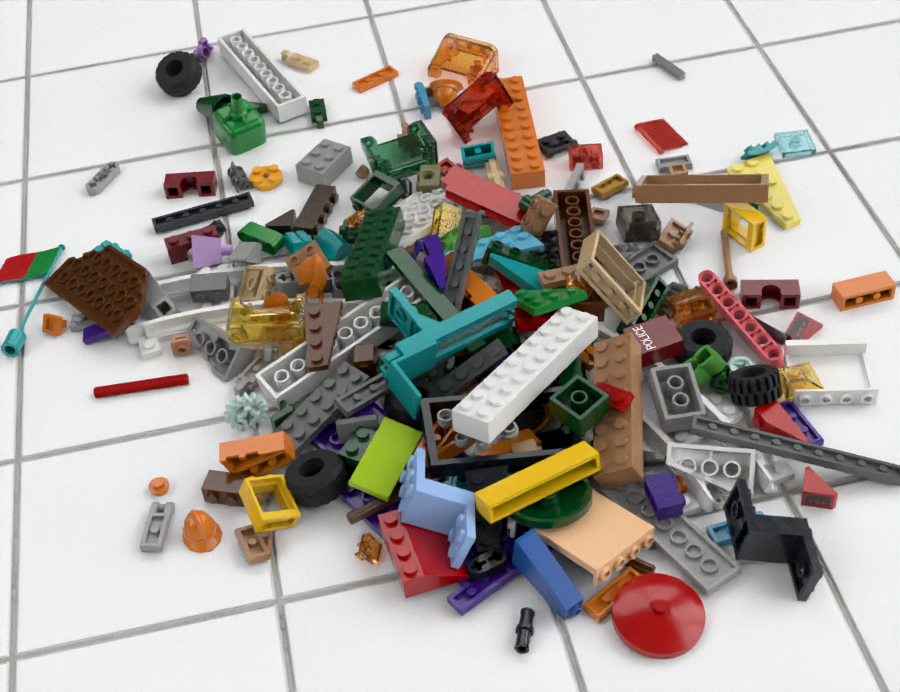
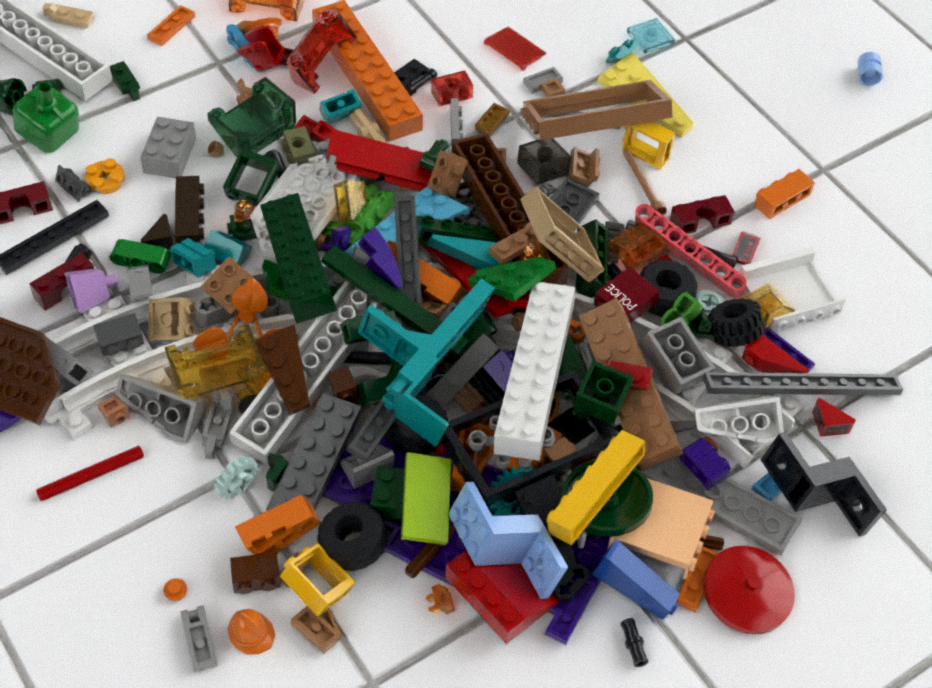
camera: 30 degrees left, 10 degrees up
(433, 101) = (263, 49): none -> red piece

